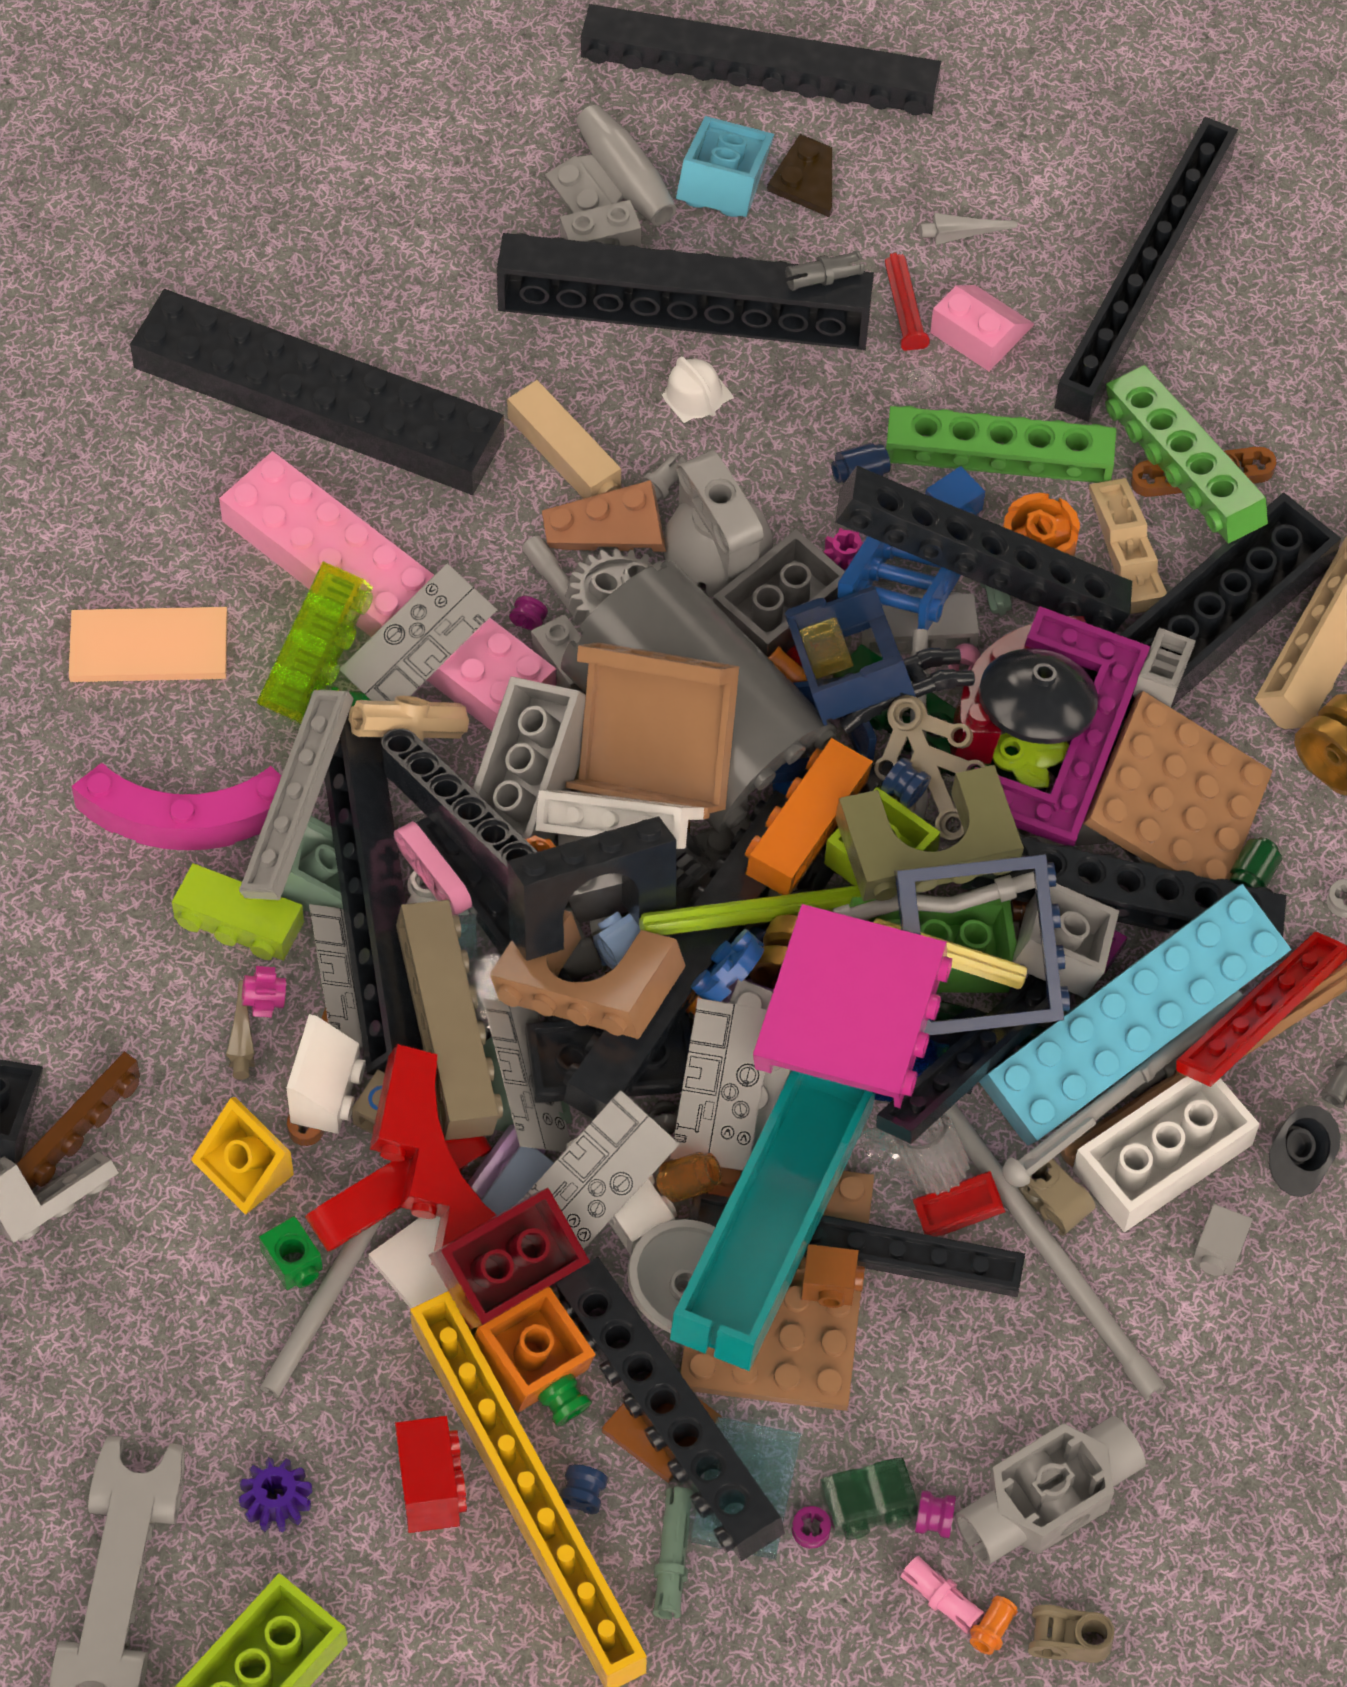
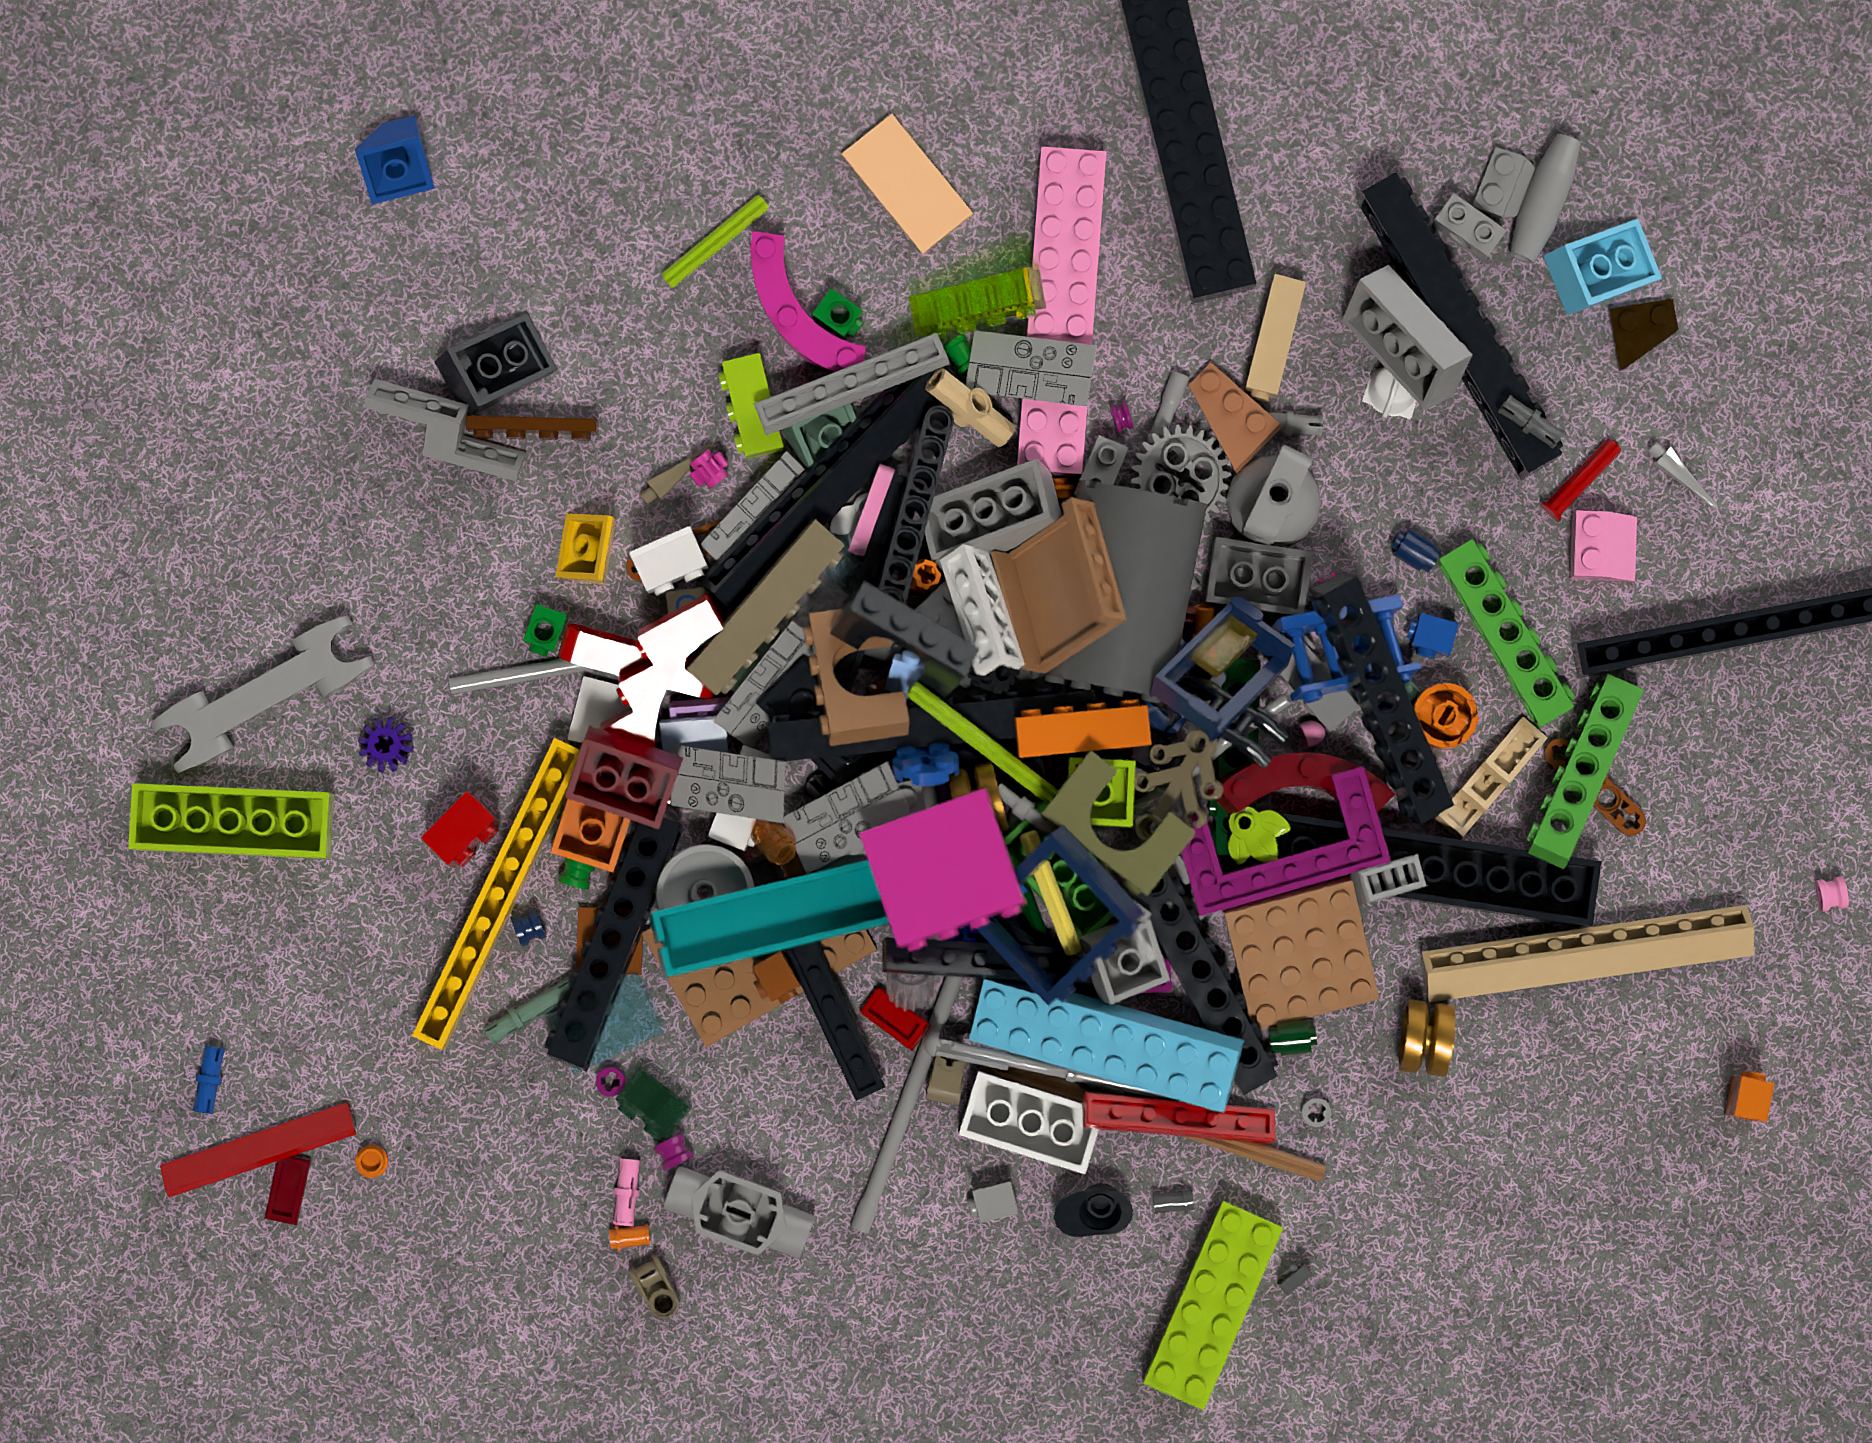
camera: 55 degrees right, 25 degrees up
(49, 841) = (715, 241): none -> lime axle
(221, 764) = (832, 302): none -> green brick
(660, 325) = (1406, 337): none -> light grey brick
(760, 59) = (1715, 221): black brick -> none
(906, 782) = (1150, 778): dark blue wheel -> none
(1038, 696) = (1267, 820): black dish -> none

